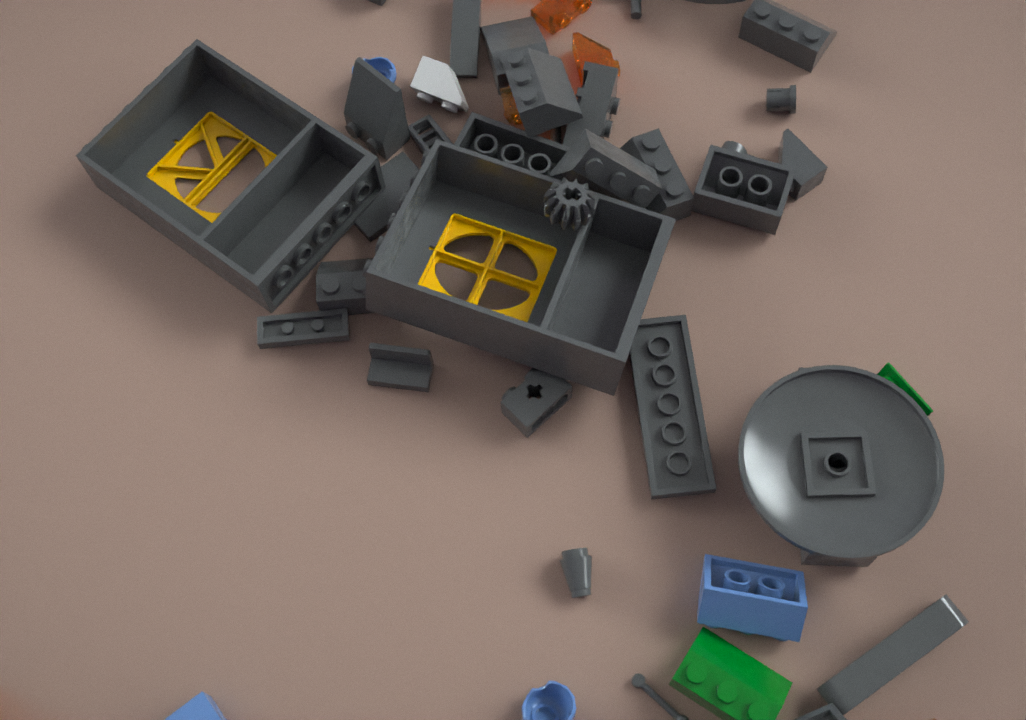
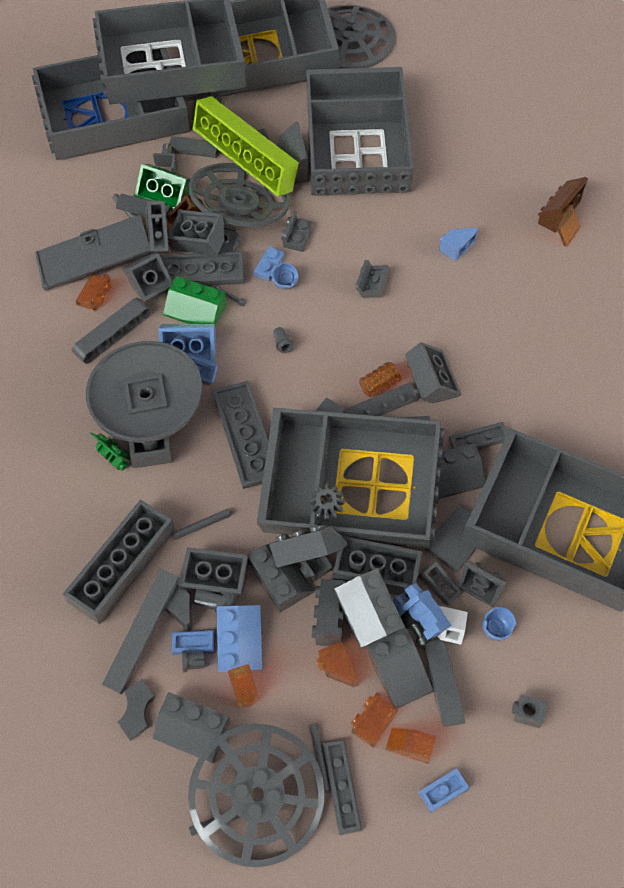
camera: 165 degrees right, 5 degrees down
(337, 450) = (432, 373): none -> dark grey slope
(382, 669) = (372, 280): none -> dark grey bracket
(426, 453) = (379, 378): none -> clear orange piece
(436, 418) = (386, 402): none -> dark grey hinge
(468, 76) = (423, 610): none -> medium blue hips
(719, 56) = (243, 685): none -> clear orange slope
(719, 104) = (239, 637): none -> medium blue slope
(736, 539) = (207, 369): none -> medium blue plate
(753, 278) = (201, 524): none -> dark grey bar
(772, 124) = (193, 642): none -> medium blue tile
(848, 136) = (141, 631): none -> dark grey tile
(859, 53) = (138, 699): none -> dark grey tile
(878, 231) = (119, 561): none -> dark grey brick

